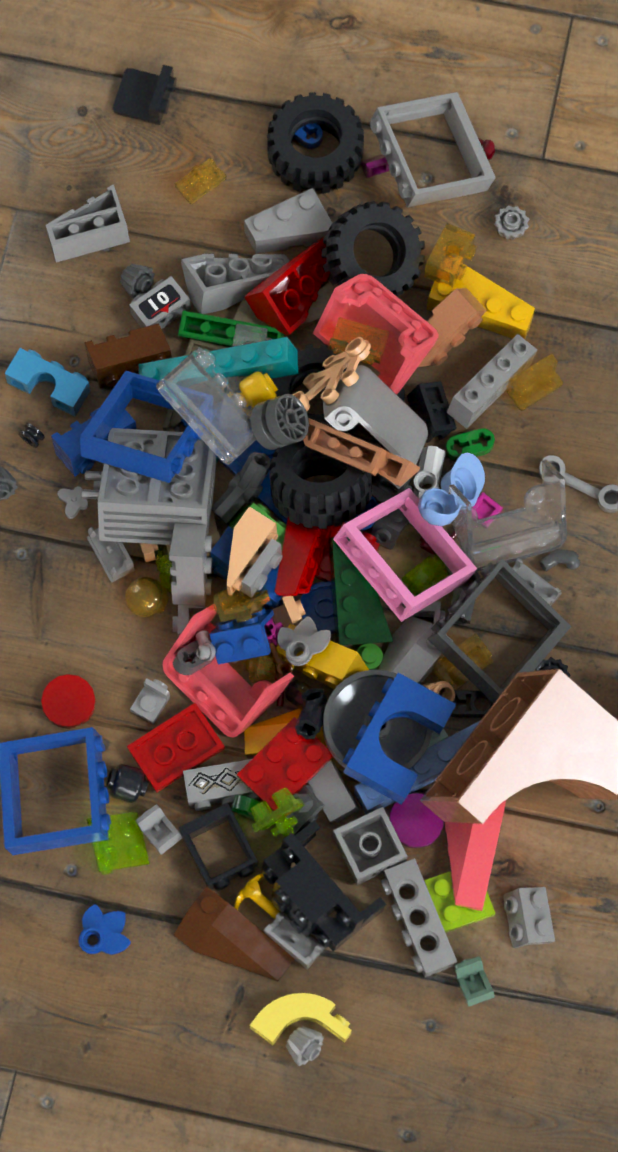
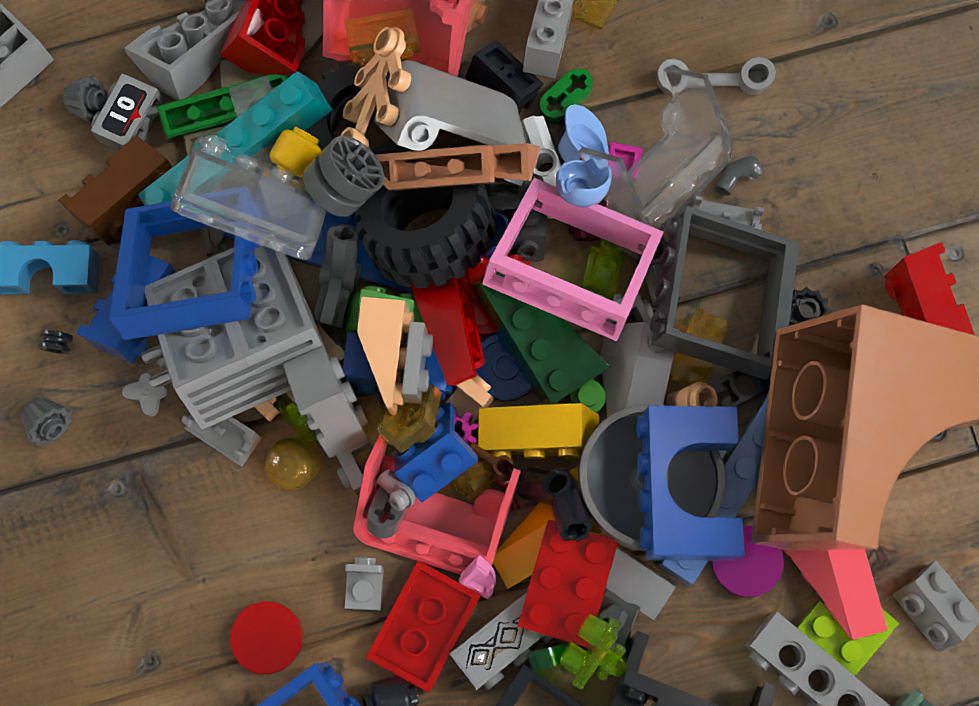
camera: 25 degrees left, 5 degrees up
(230, 735) = (479, 577): none -> bright pink tile
(303, 638) = (508, 418): light grey plate -> none
(369, 846) = (717, 624): light grey brick -> none

